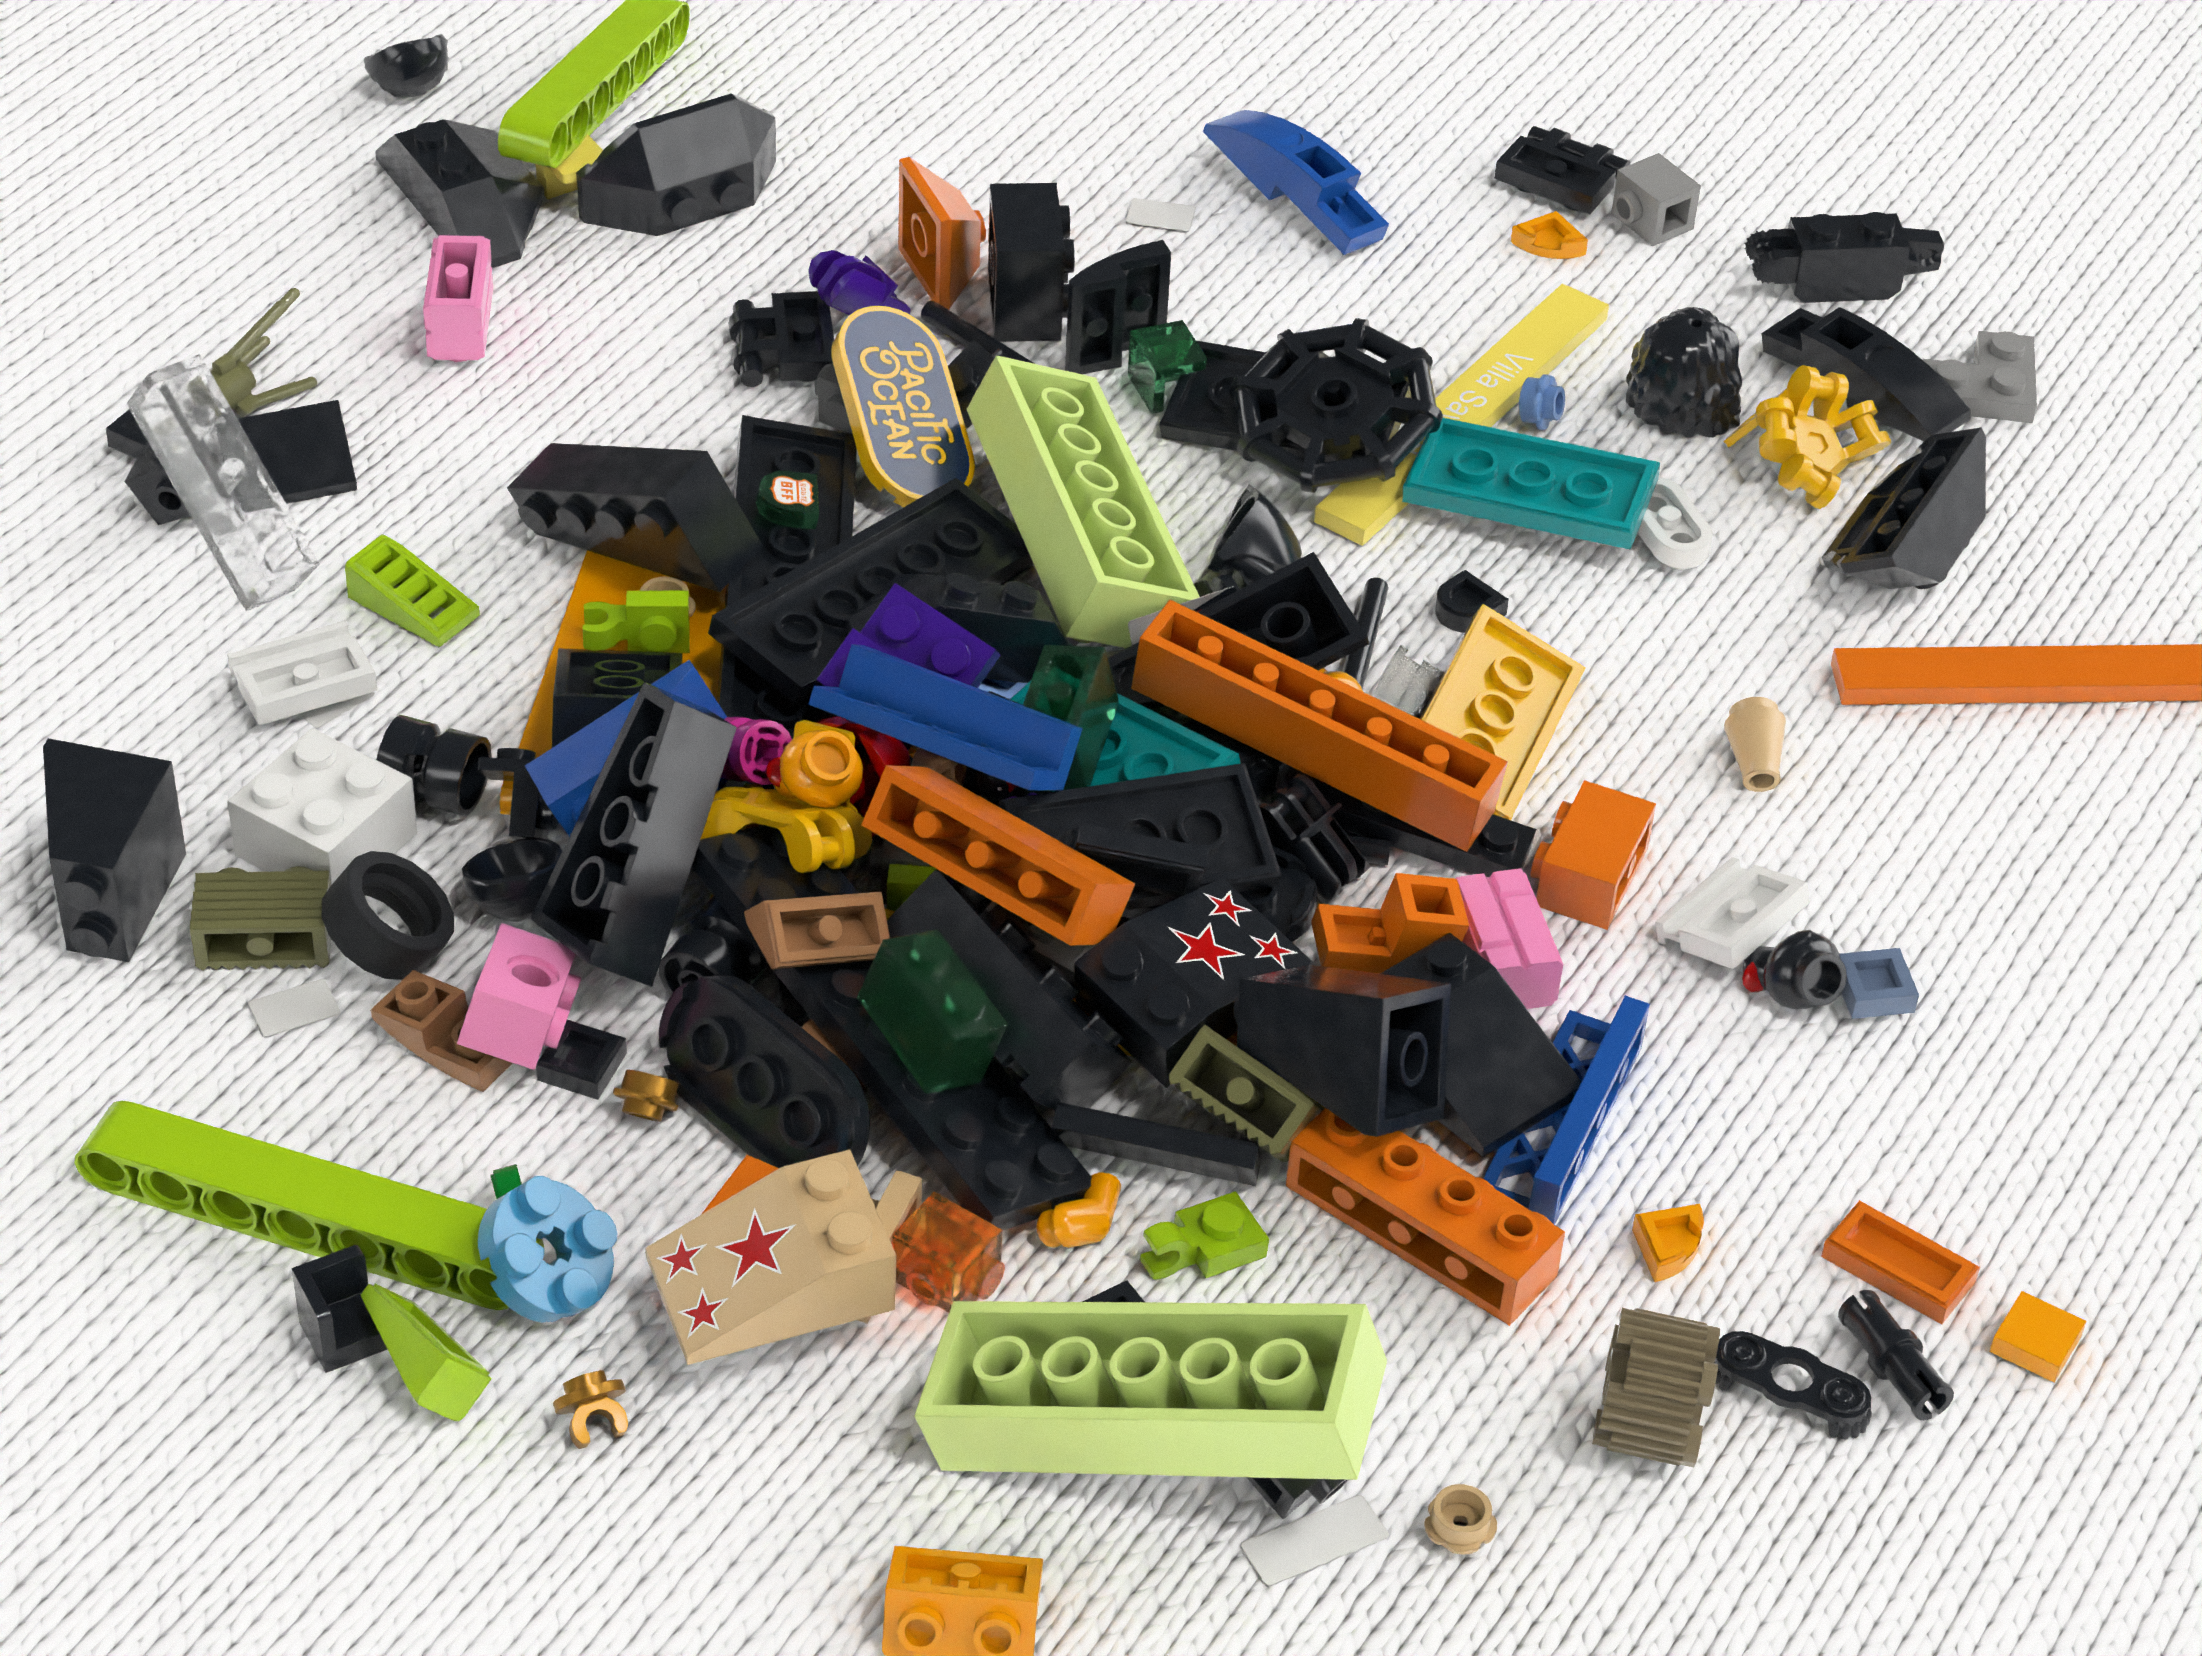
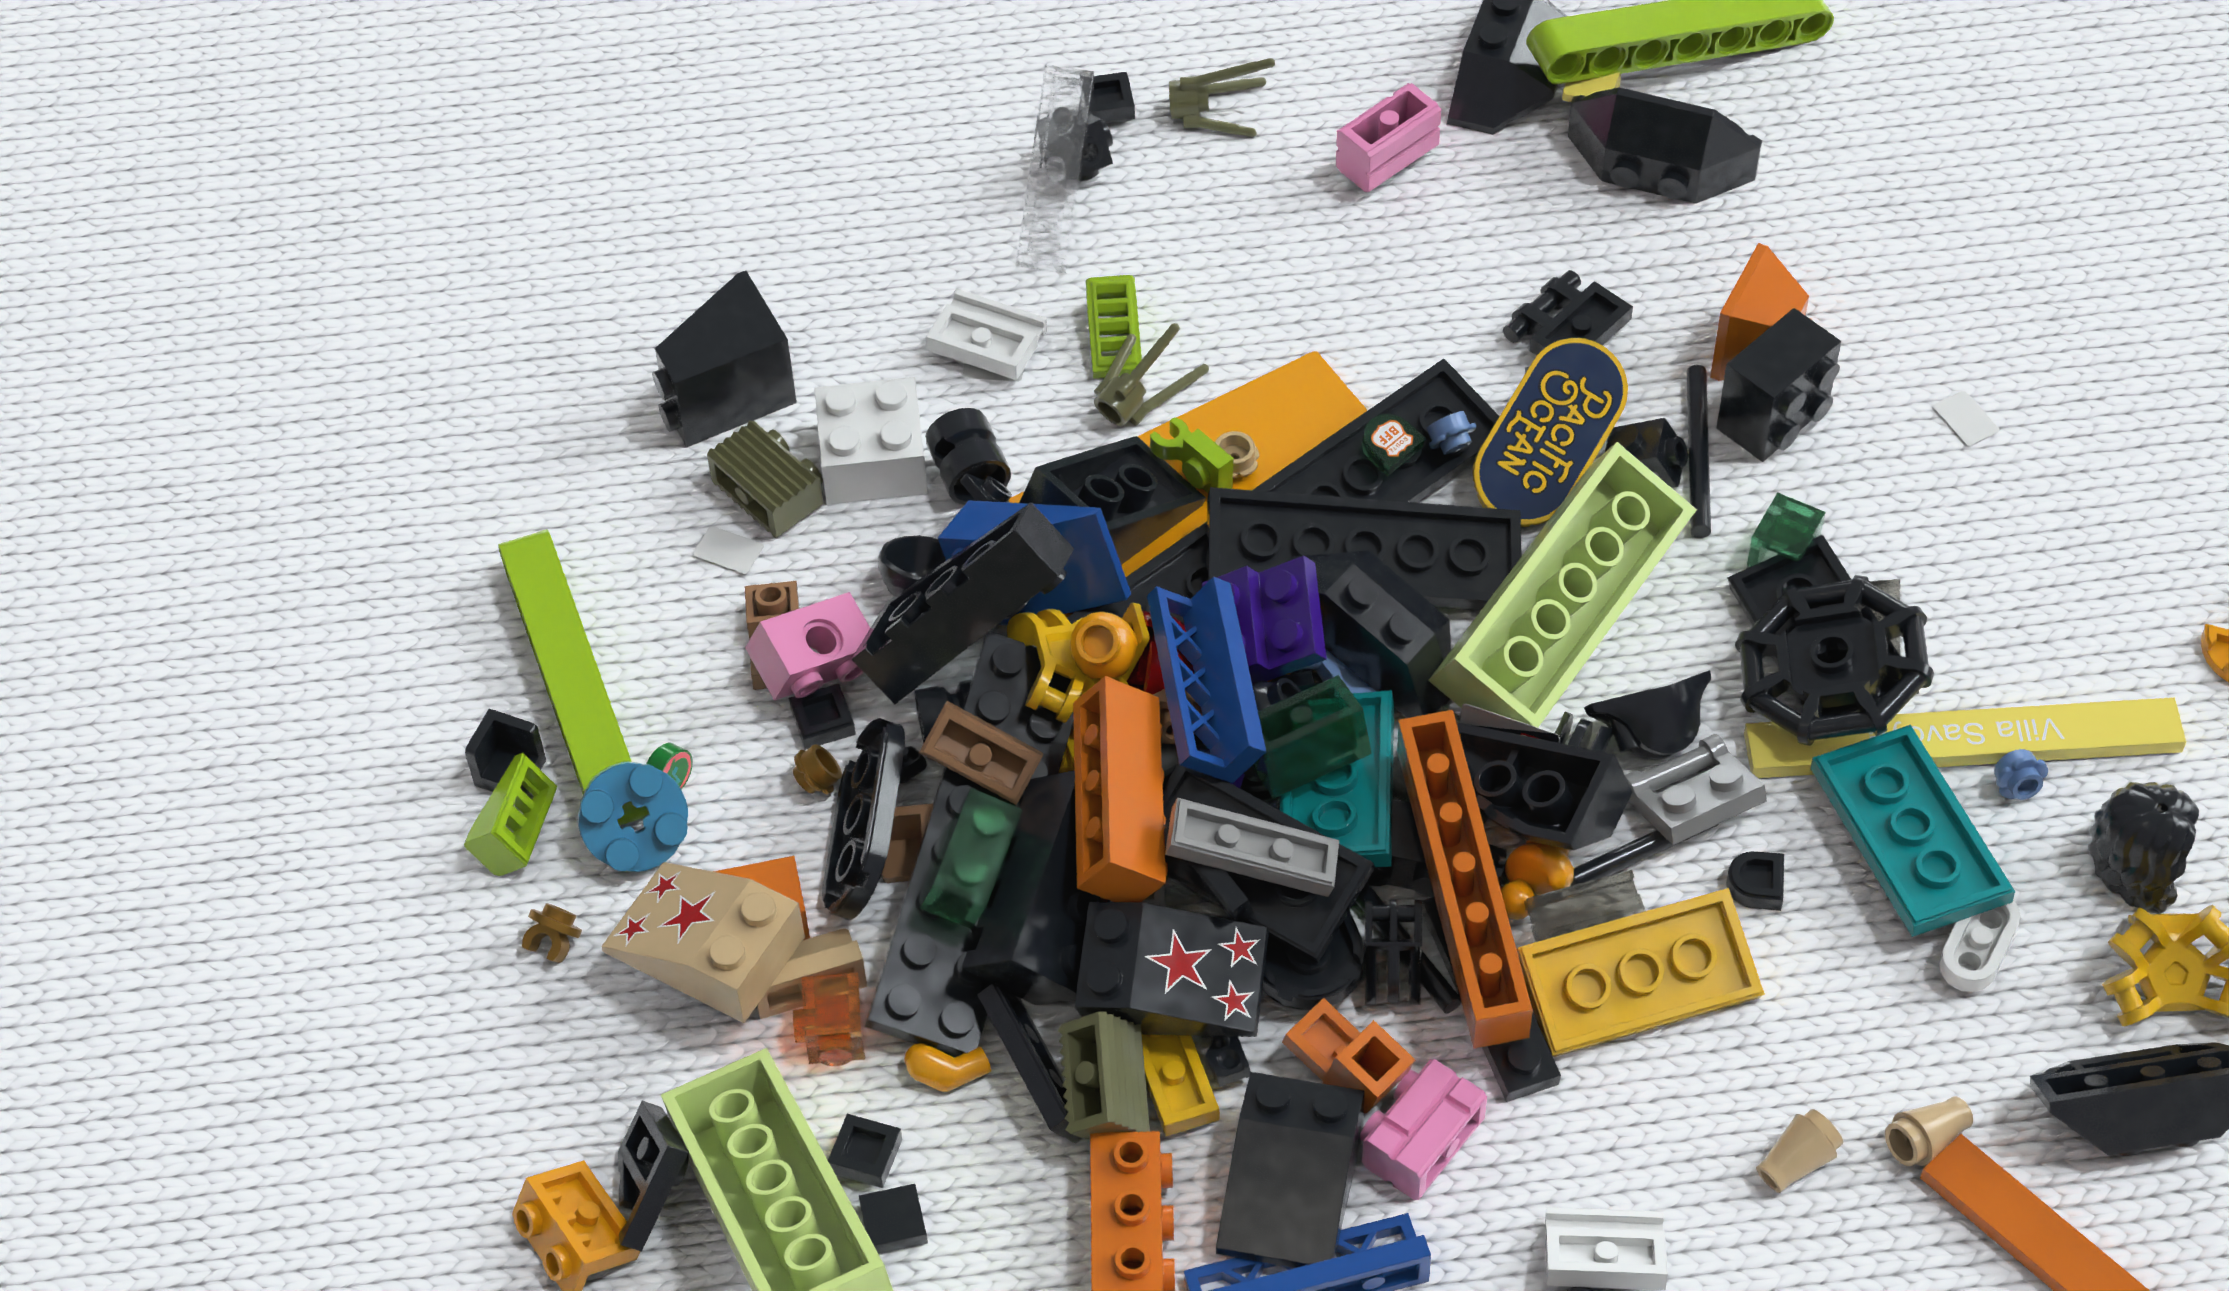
camera: 55 degrees right, 10 degrees up
(303, 450) = (1164, 175): black slope -> none
(369, 939) = (846, 513): black tyre -> none
(501, 630) = (1122, 397): none -> olive plant
(640, 508) = (1278, 380): black wedge -> none
(752, 748) = (1104, 586): dark pink wheel -> none
(829, 458) = (1451, 433): none -> medium blue plate
(852, 283) = (1649, 322): dark purple arm -> none
(978, 1488) = (649, 1166): none -> black wing
(1113, 299) = (1793, 462): black slope -> none
(1162, 806) = (1252, 847): none -> light grey tile
(1208, 1234) = (997, 1152): lime plate -> none
(1296, 163) = (2086, 463): blue slope -> none
(1352, 1041) = (1183, 1104): black slope -> none
(1367, 564) = (1701, 800): none -> light grey plate
(1593, 854) = (1569, 1126): orange brick -> none
(1813, 666) = (1925, 1131): none -> tan cone

